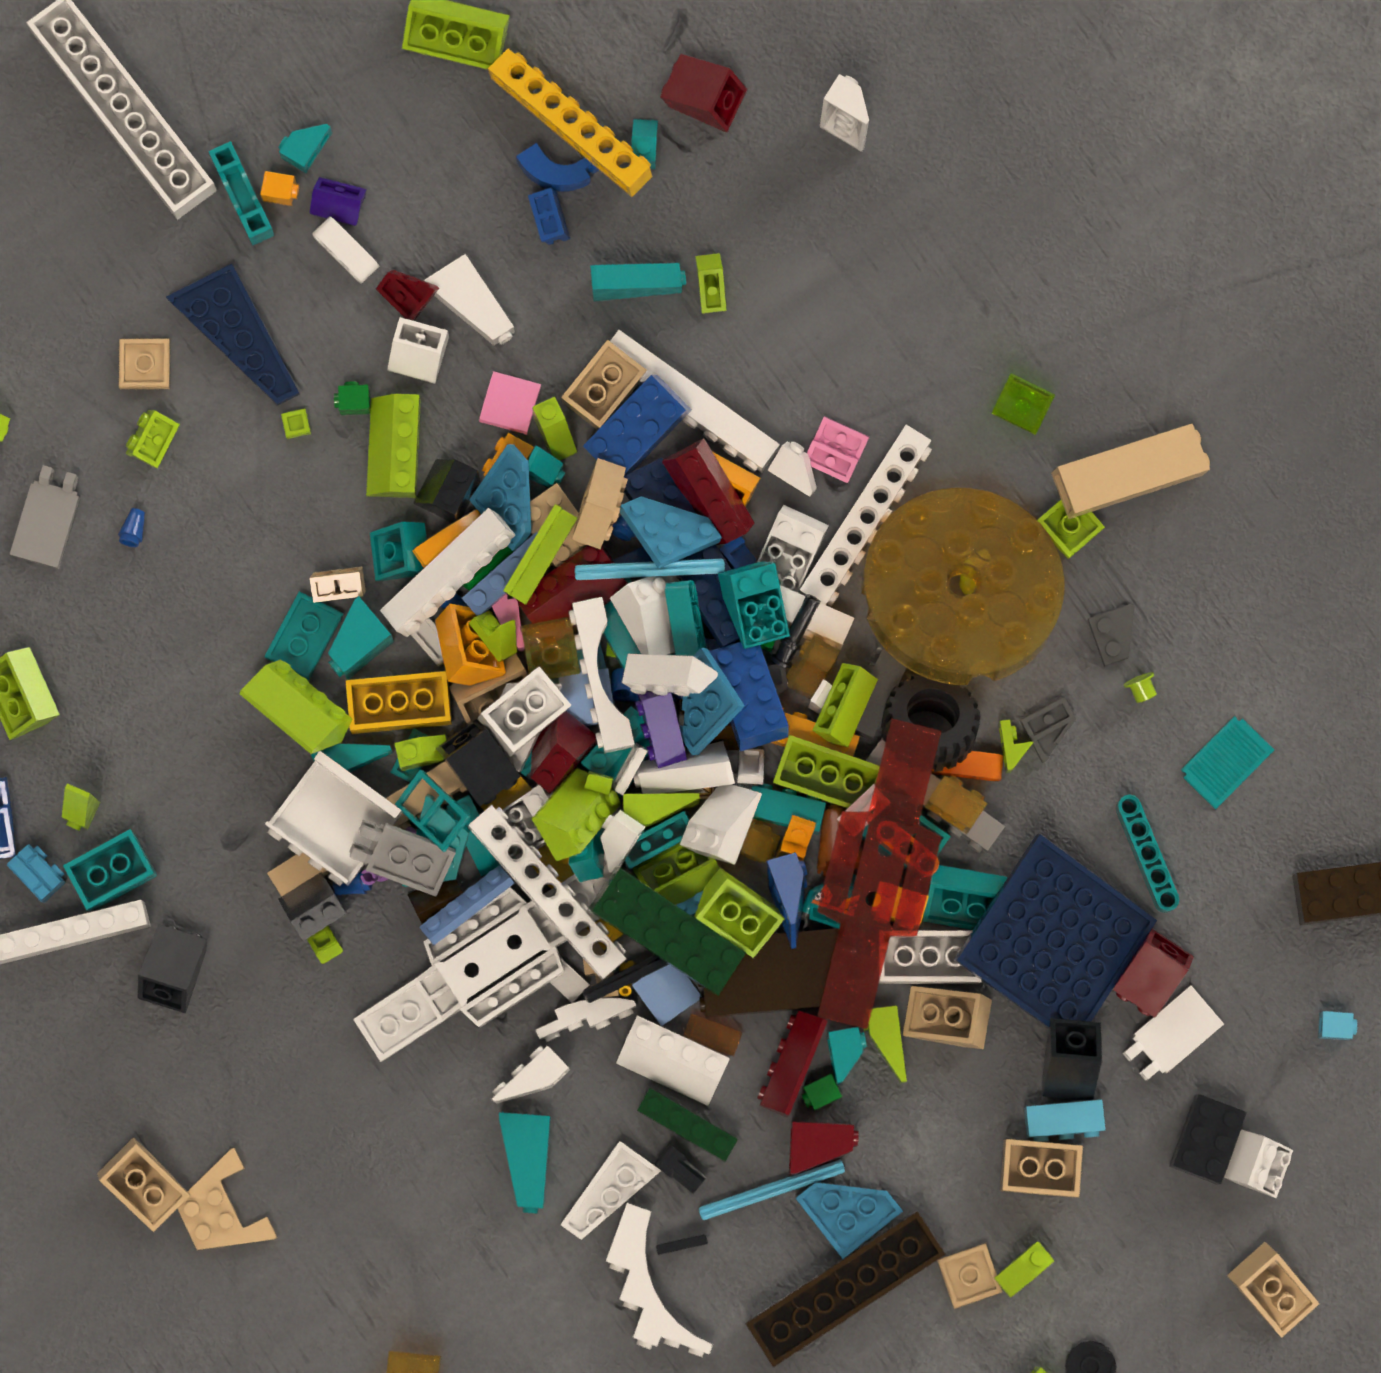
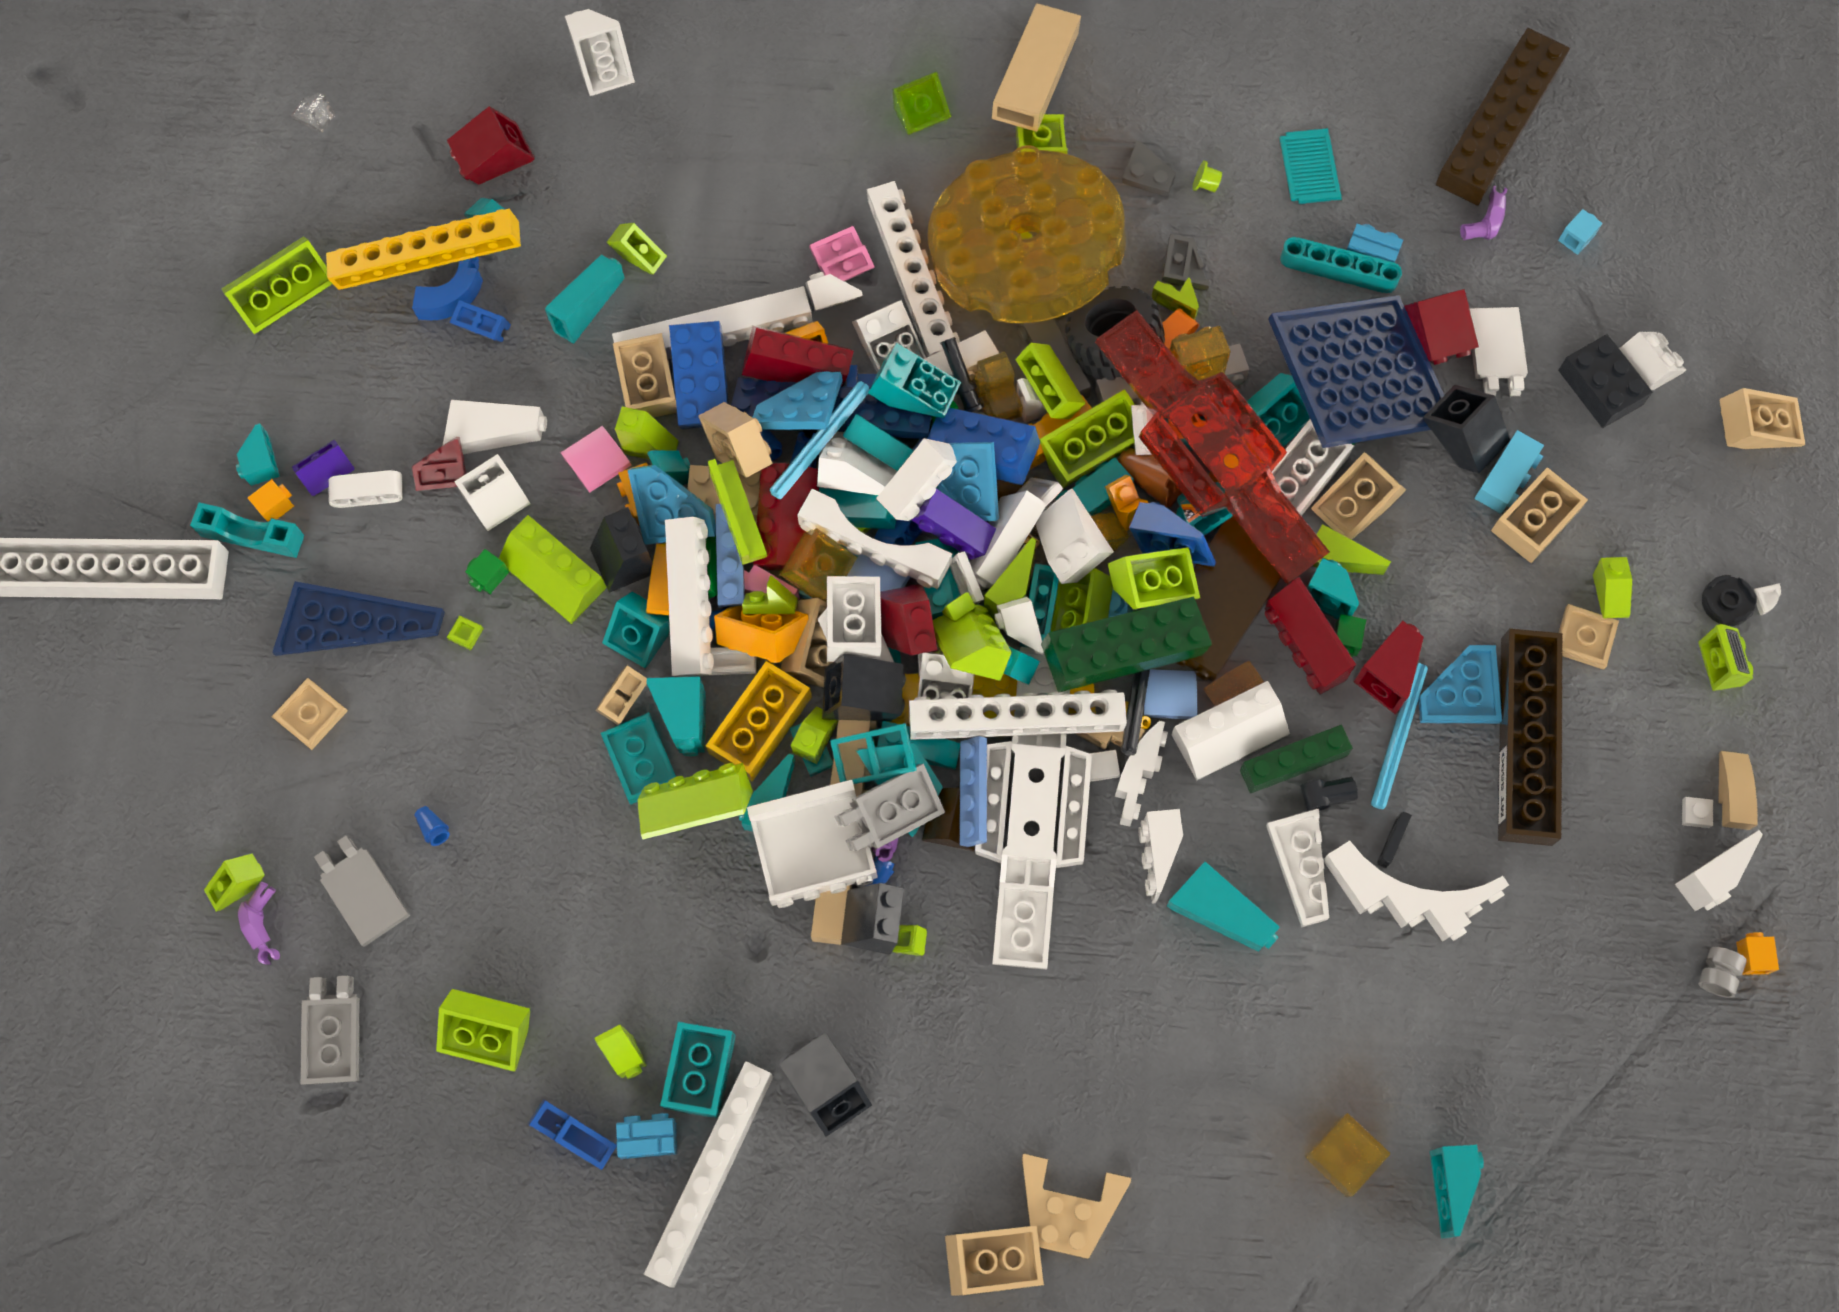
camera: 45 degrees left, 10 degrees down
(151, 438) = (373, 752): lime bracket -> none
(1185, 868) = (1375, 243): none -> dark azure brick
(1291, 946) = (1491, 222): none -> medium lavender arm

